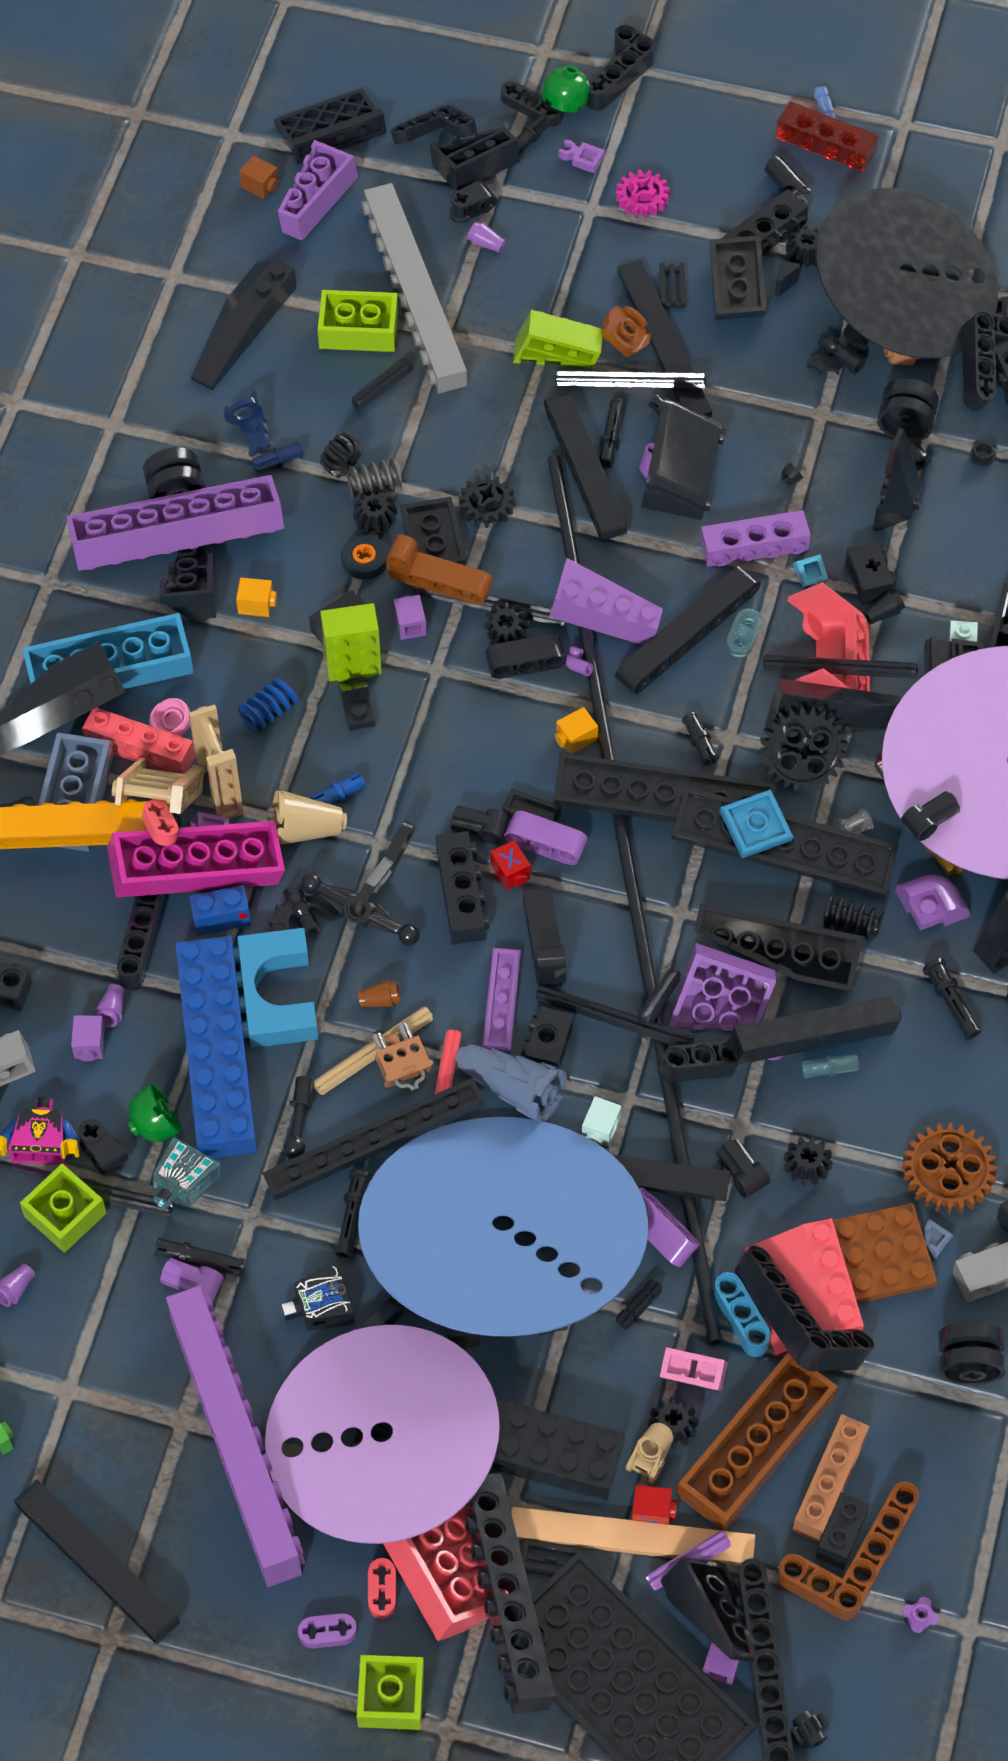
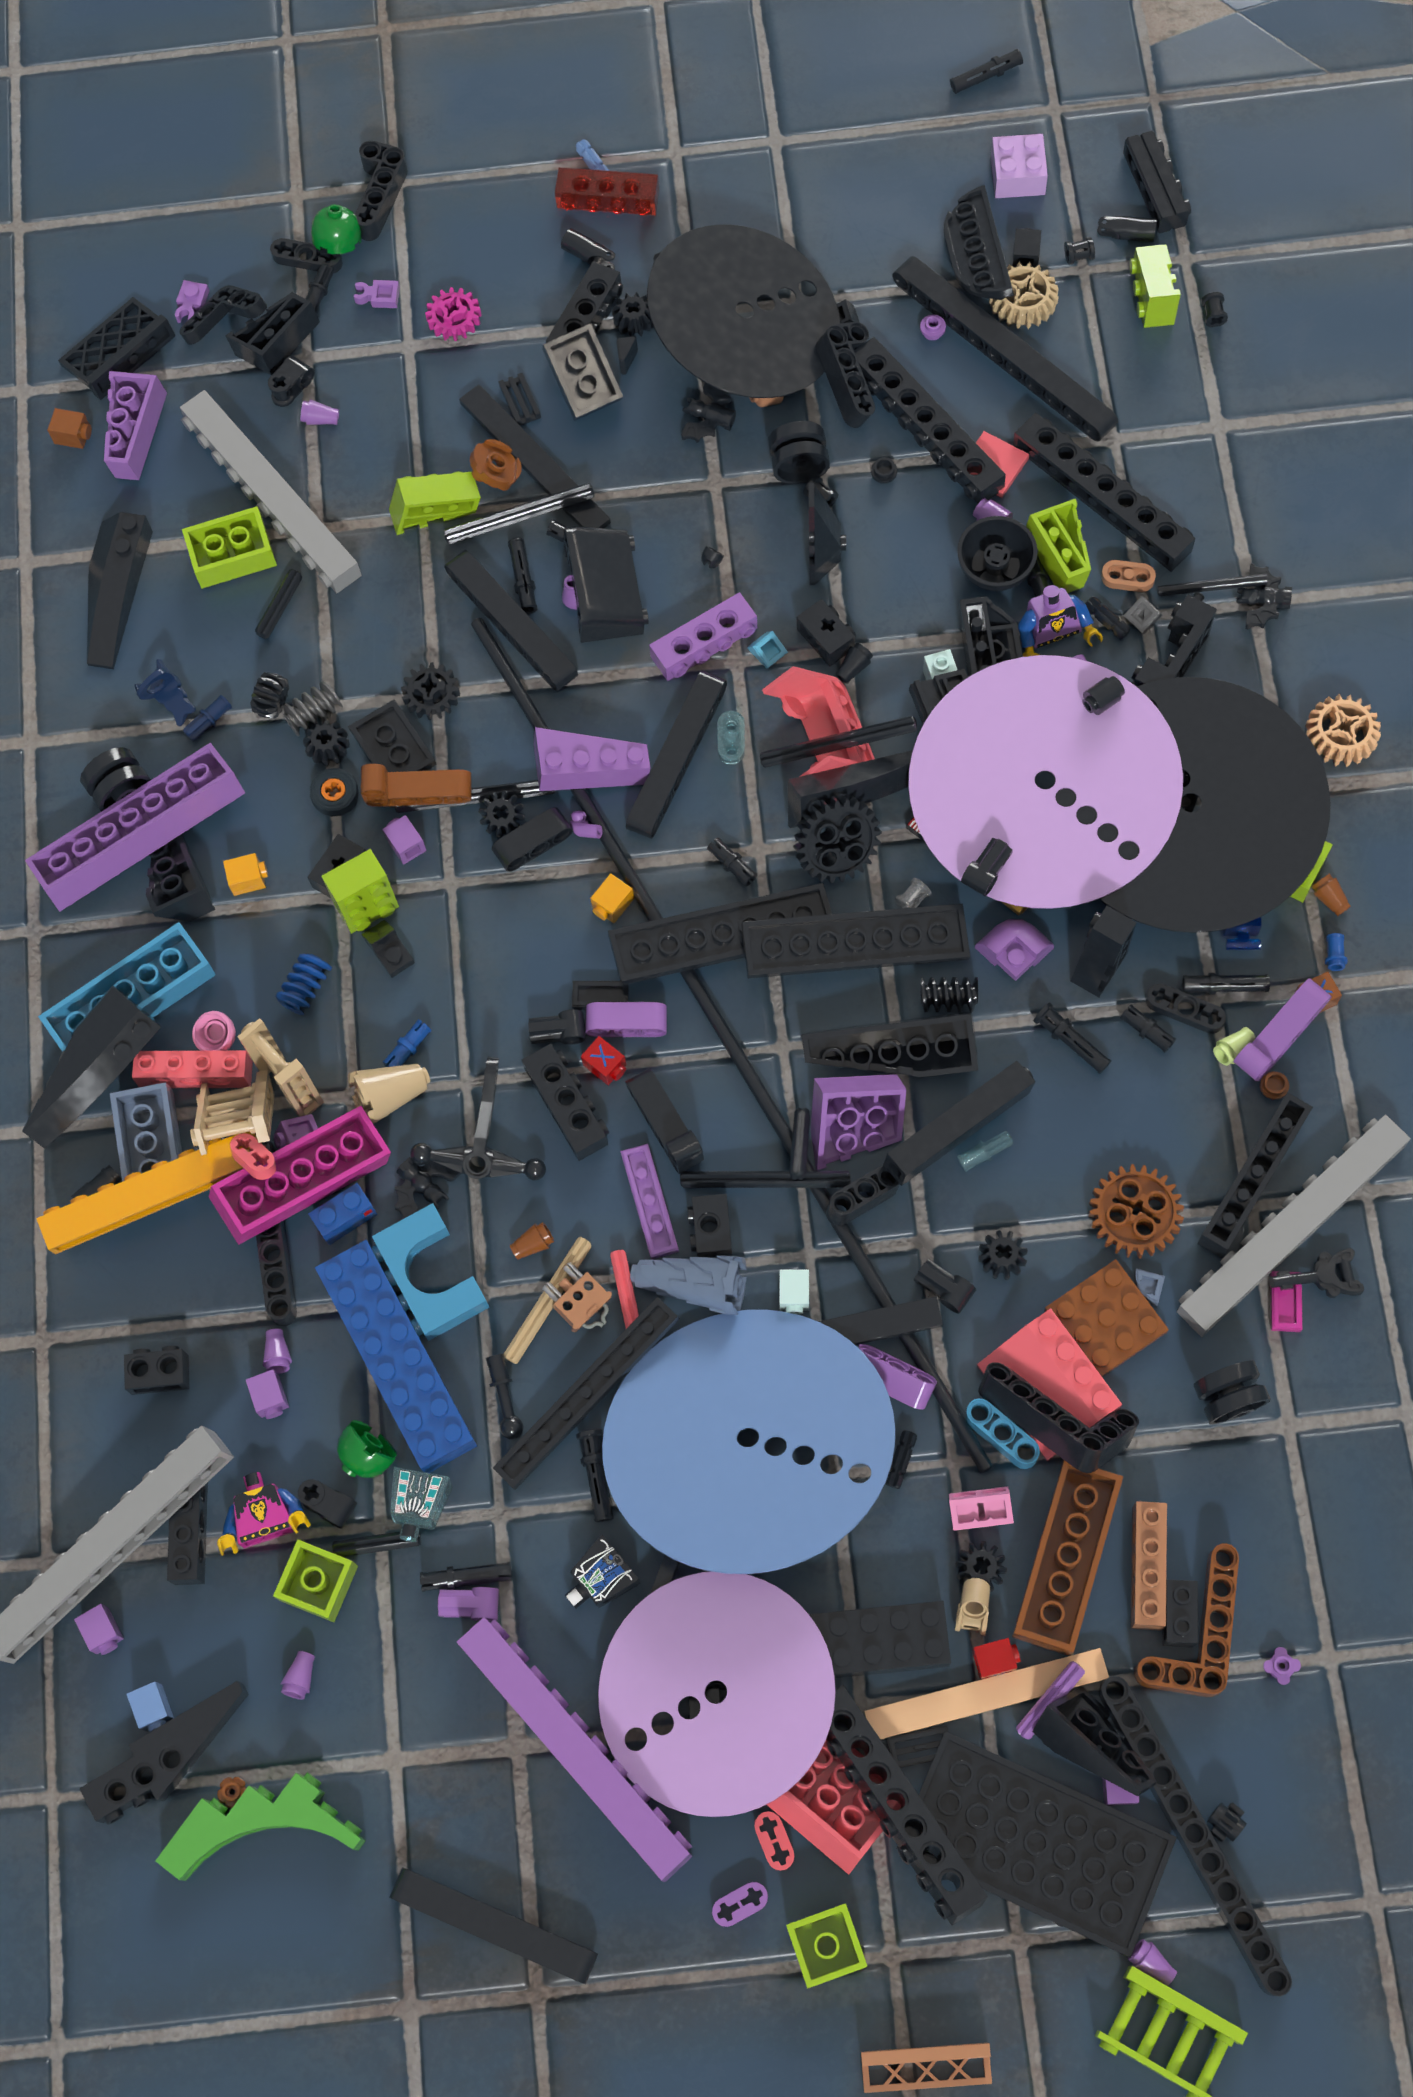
camera: 15 degrees left, 10 degrees up
(412, 106) = (190, 298): none -> medium lavender plate
(756, 823) = (823, 934): dark azure tile -> none

